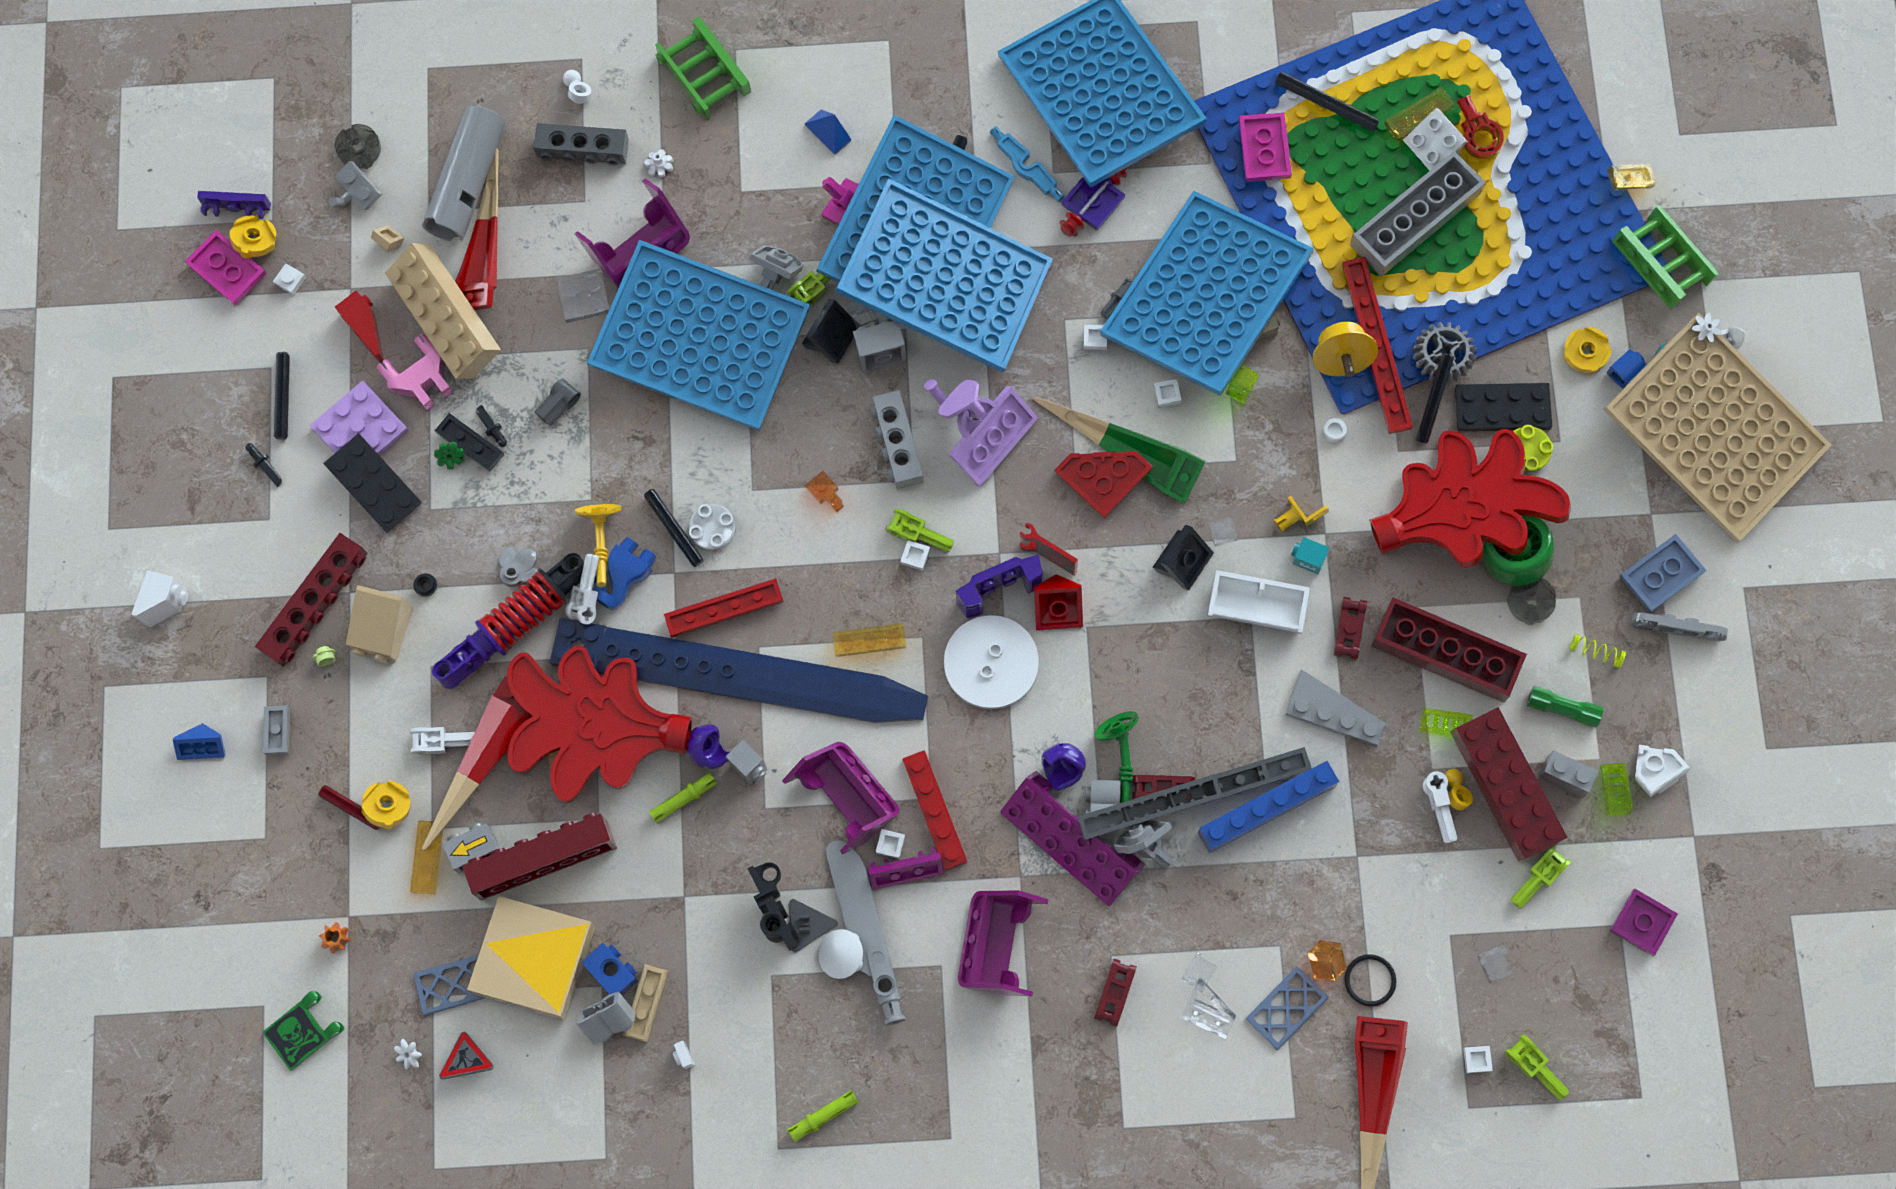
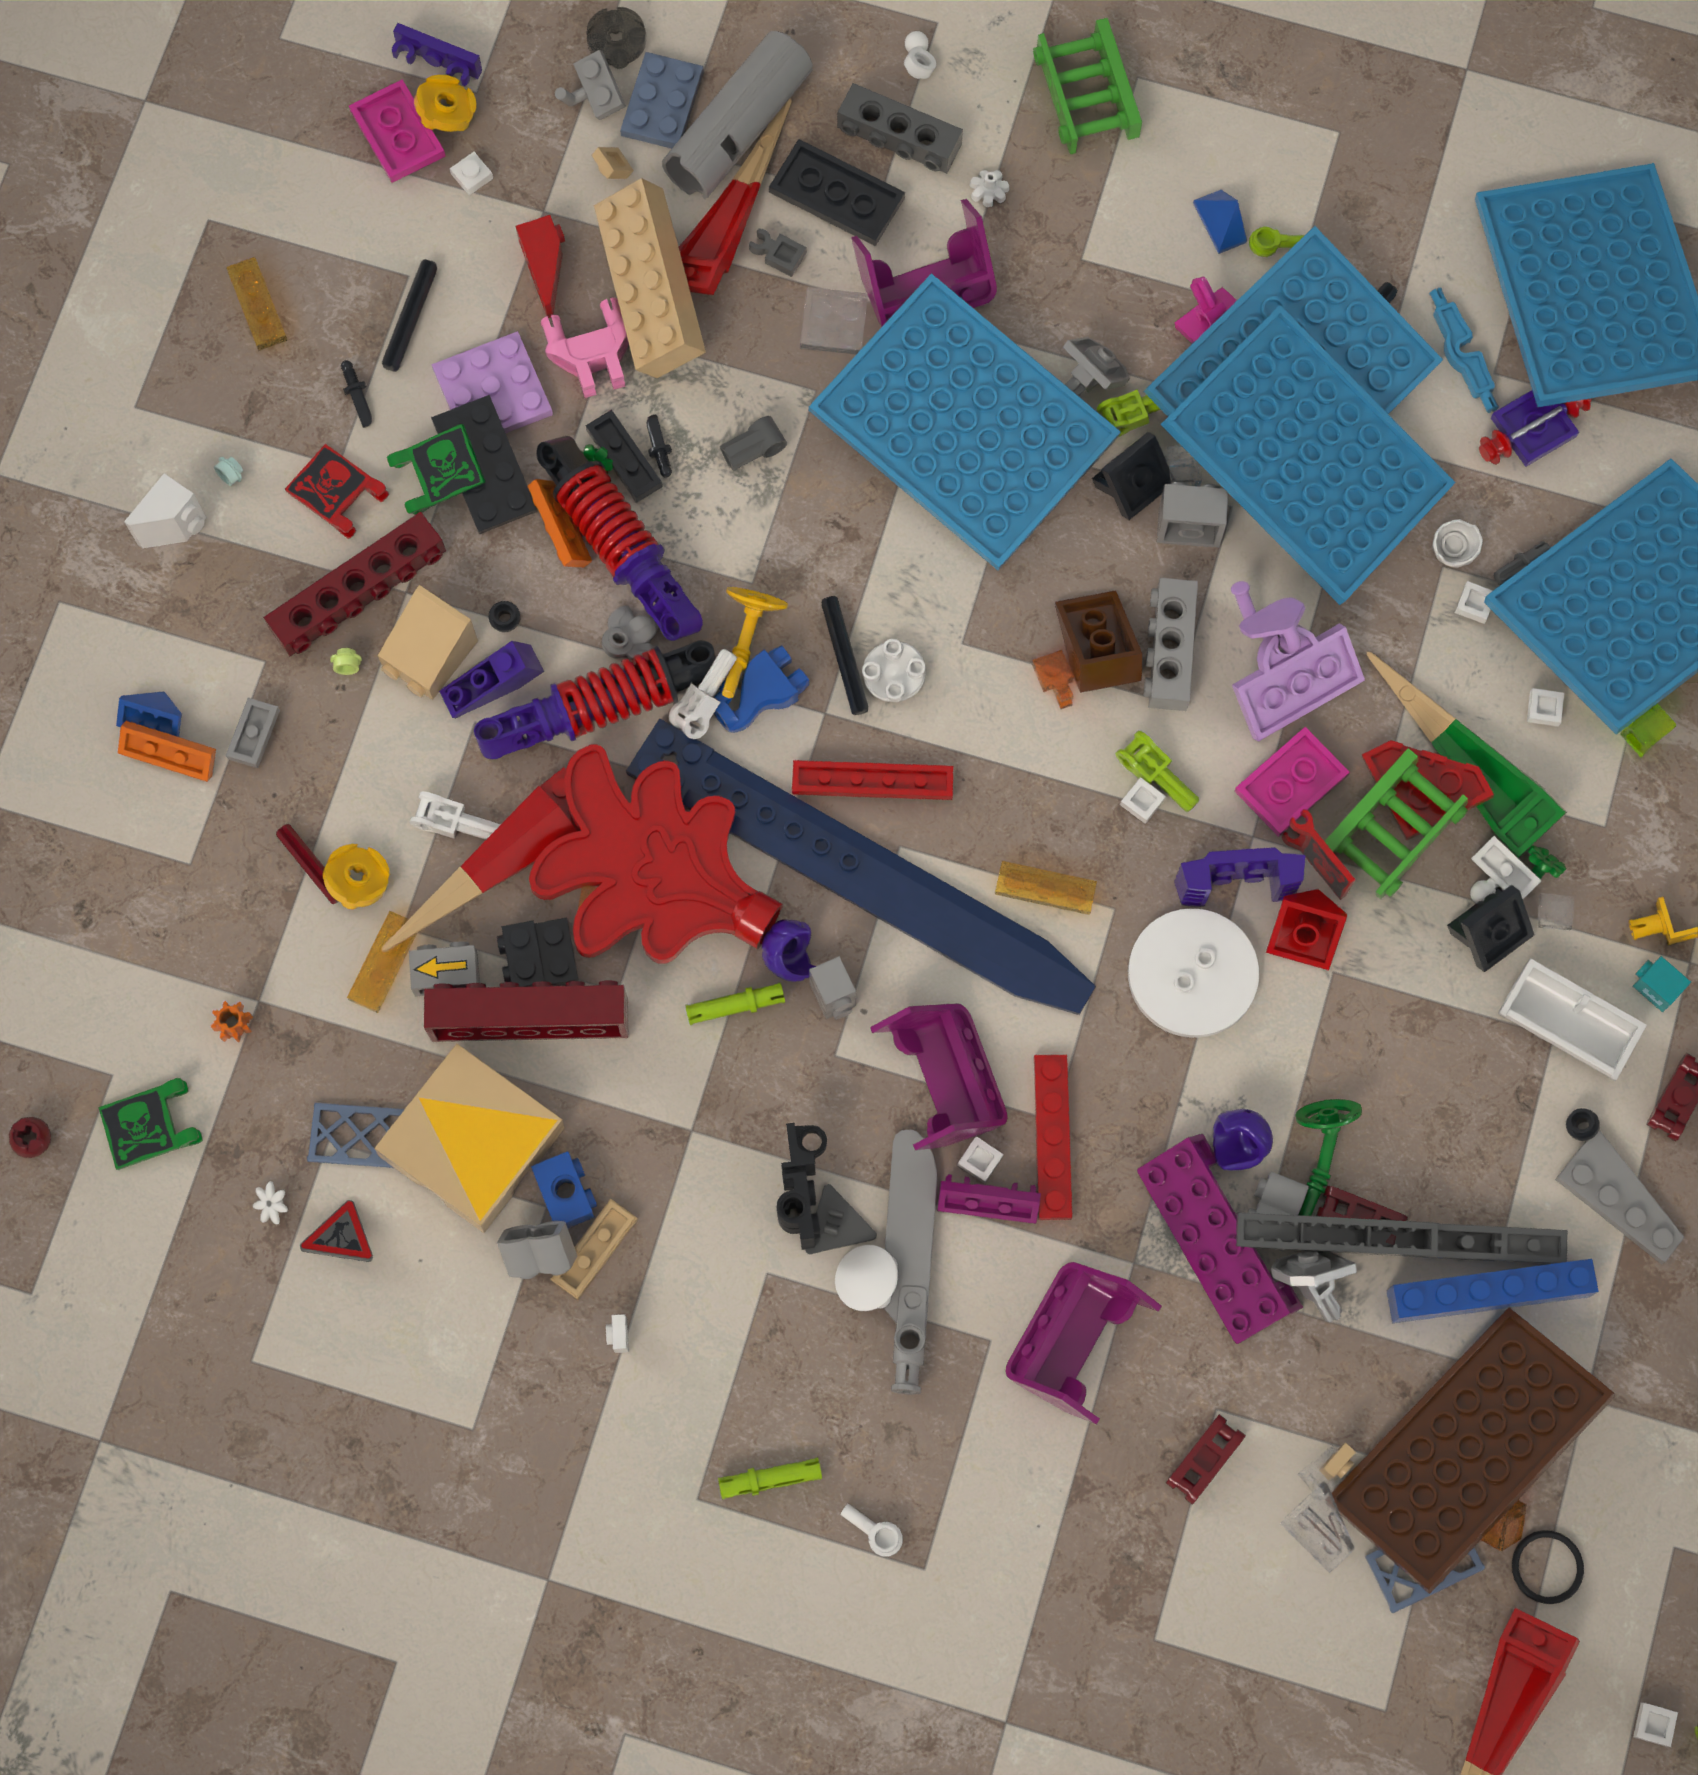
camera: 15 degrees right, 0 degrees up
(169, 425) = (256, 303): none -> clear yellow plate
(192, 550) = (229, 470): none -> light aqua plate
(219, 764) = (166, 751): none -> orange plate
(227, 1076) = (24, 1127): none -> dark red piece
(269, 536) = (331, 485): none -> flag
(344, 495) = (443, 466): none -> flag
(406, 181) = (661, 100): none -> sand blue plate
(432, 632) = (492, 678): none -> dark purple slope
(440, 505) = (560, 527): none -> orange plate
(484, 500) = (617, 535): none -> piece
(529, 260) = (780, 254): none -> dark grey plate
(533, 812) = (538, 953): none -> black plate
(553, 203) = (837, 192): none -> black plate
(846, 455) = (1099, 641): none -> reddish brown slope
(864, 134) = (1266, 241): none -> lime plate
(915, 1127) = (883, 1537): none -> white plate
(1012, 505) = (1291, 781): none -> dark pink plate
(1068, 301) = (1457, 543): none -> white hair
(1078, 492) = (1384, 794): none -> bright green fence
(1177, 516) = (1503, 870): none -> white plate
(1203, 501) = (1544, 862): none -> green plant
(1205, 962) = (1338, 1463): none -> tan plate
(1286, 666) = (1582, 1115): none -> black plate
(1290, 920) = (1470, 1449): none -> reddish brown plate

